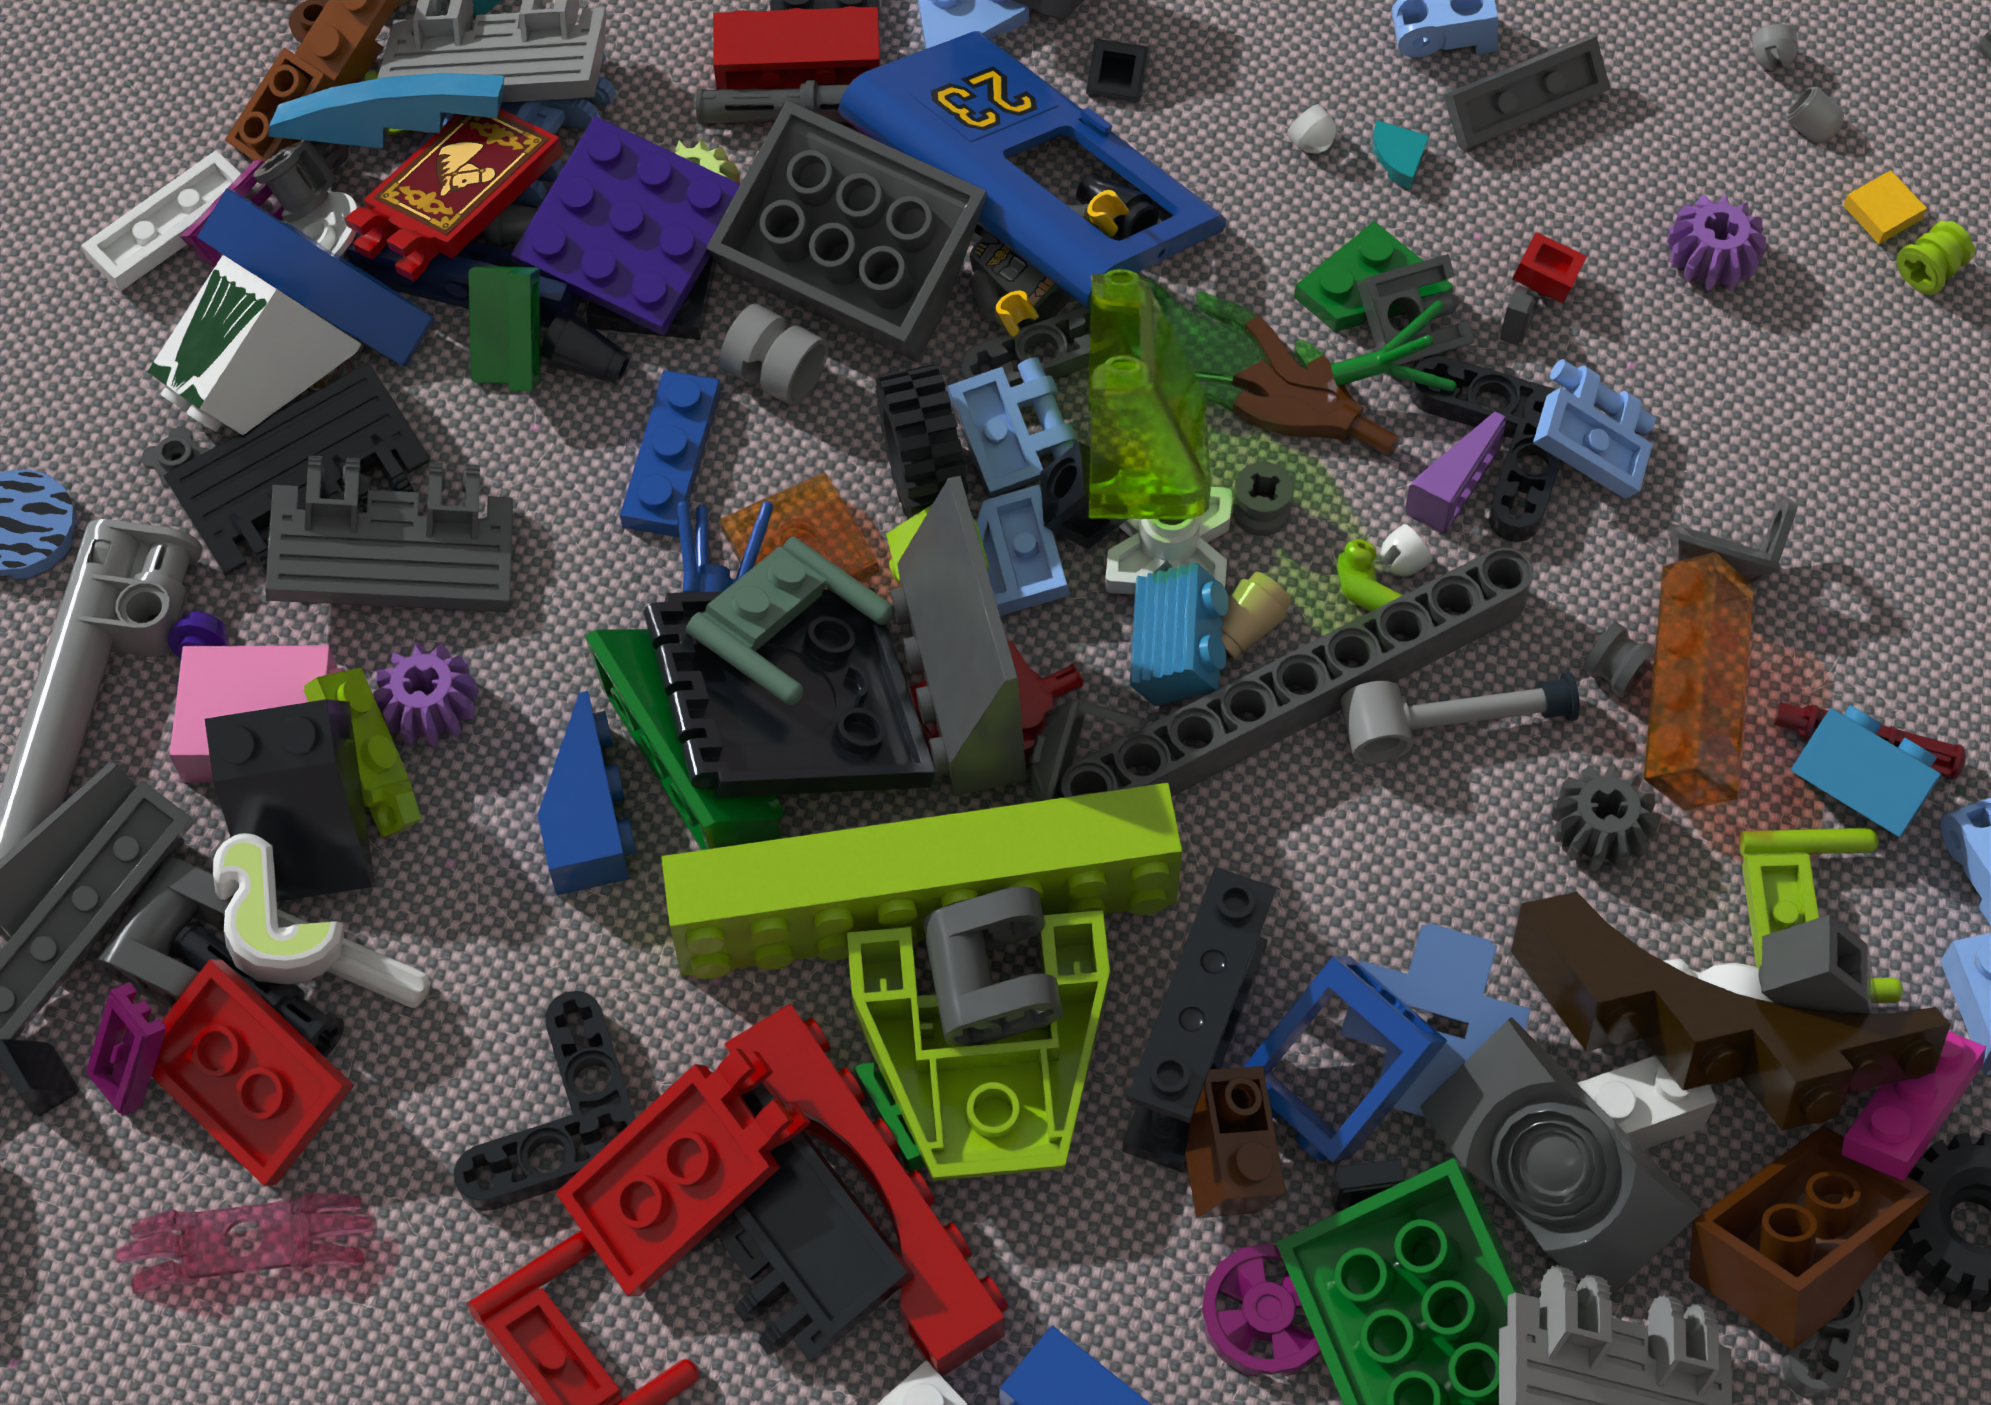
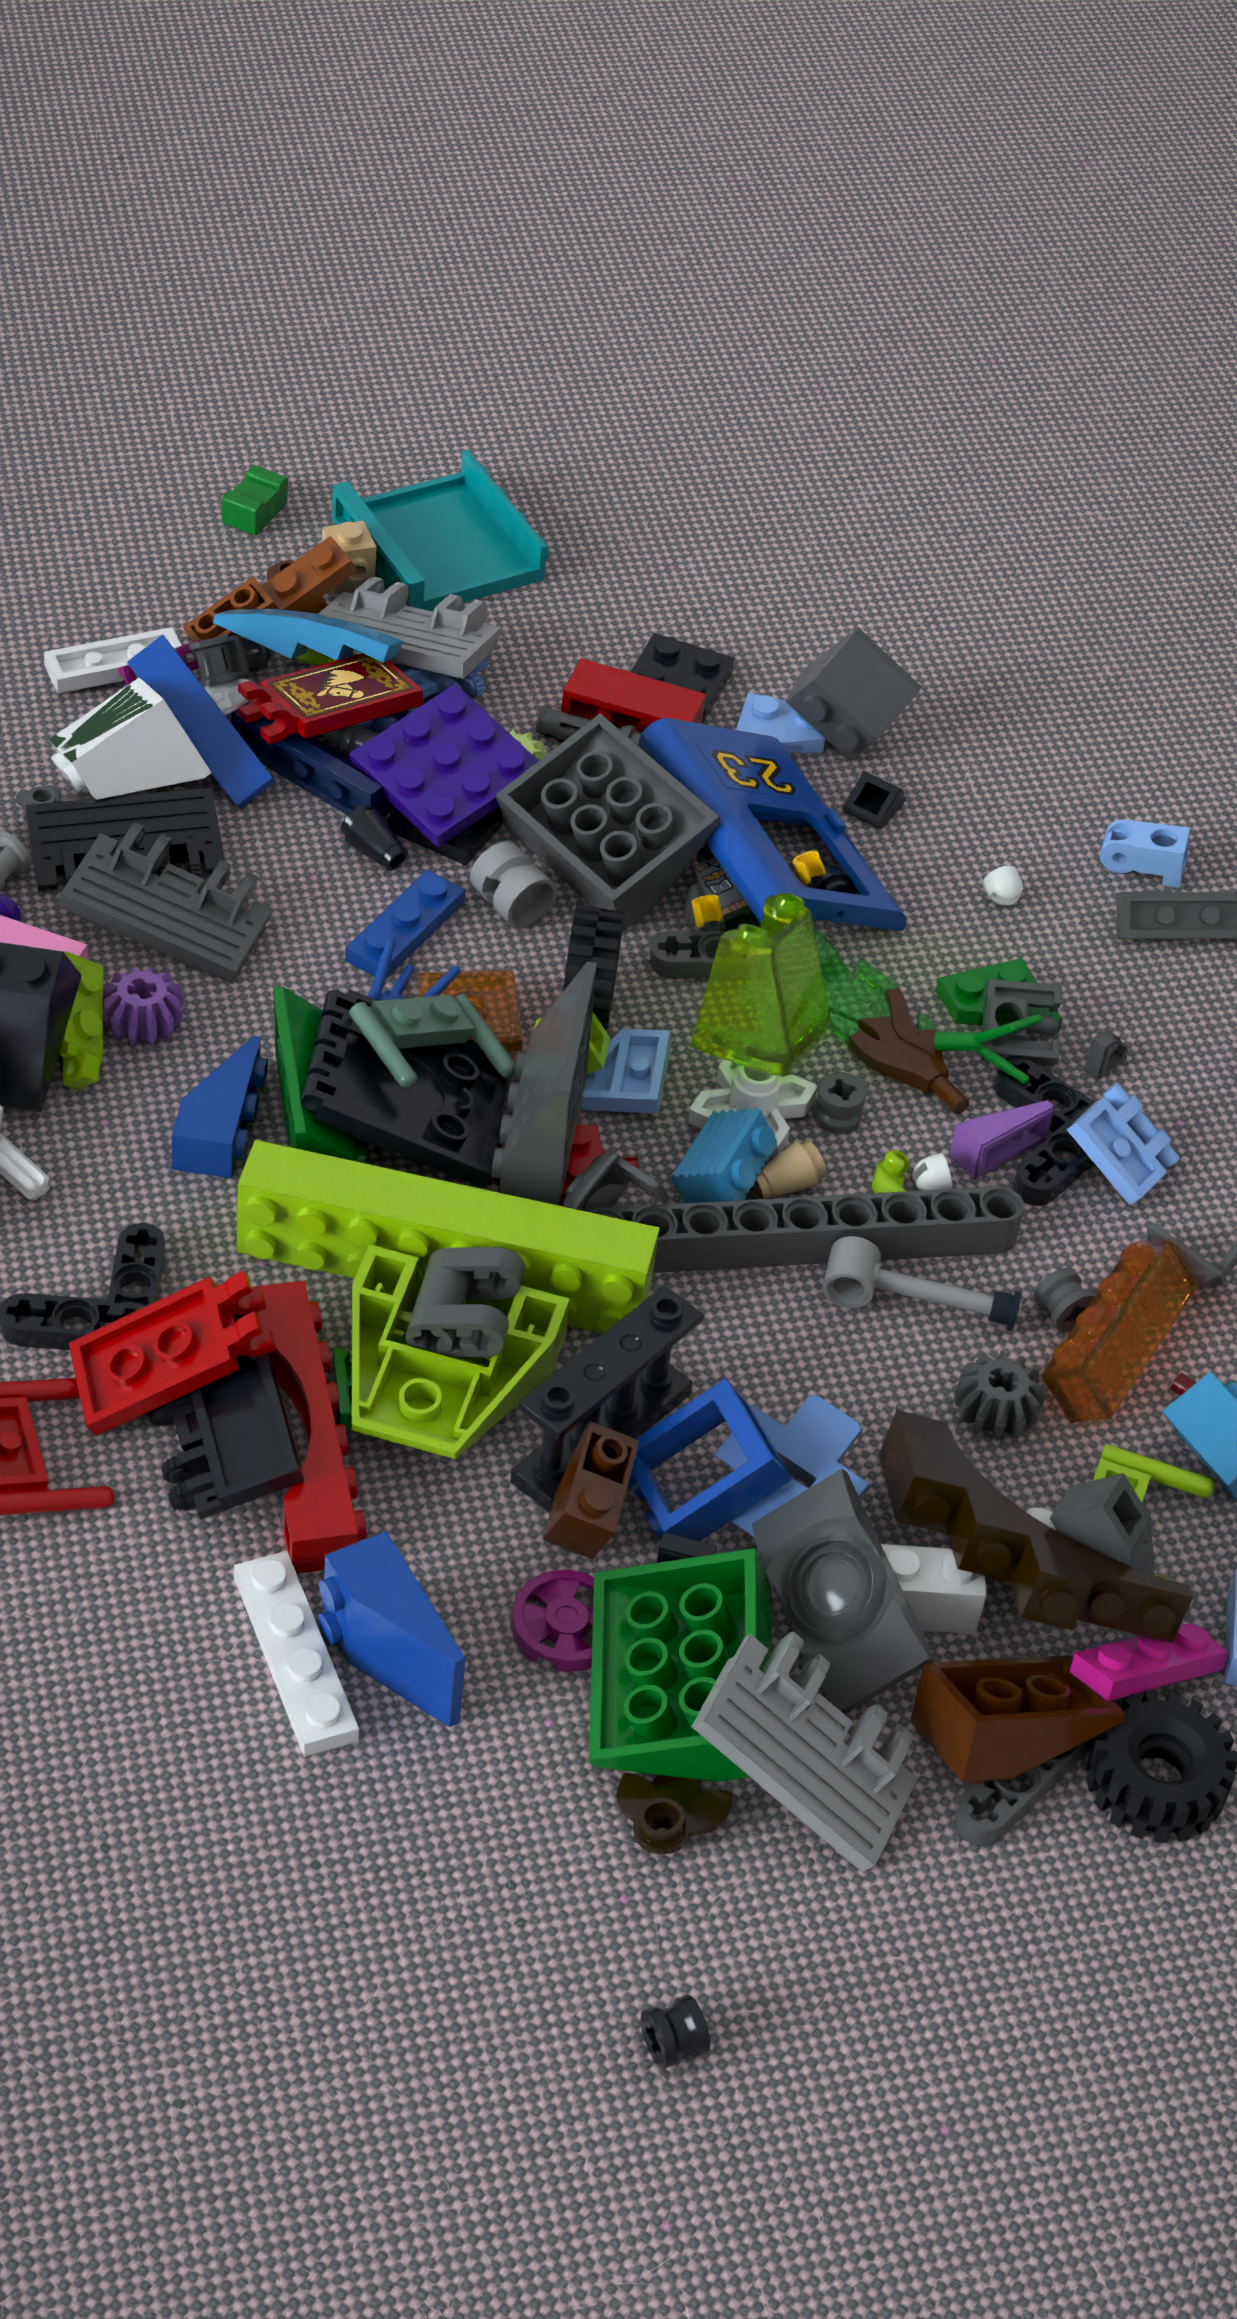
camera: 15 degrees right, 15 degrees down
(505, 326) = (323, 798): green panel -> none
(996, 430) = (655, 985): light blue plate -> none
(1067, 499) = (686, 1063): black brick -> none
(1399, 151) = (1067, 924): teal tile -> none
(1549, 268) = (1144, 1032): red plate -> none

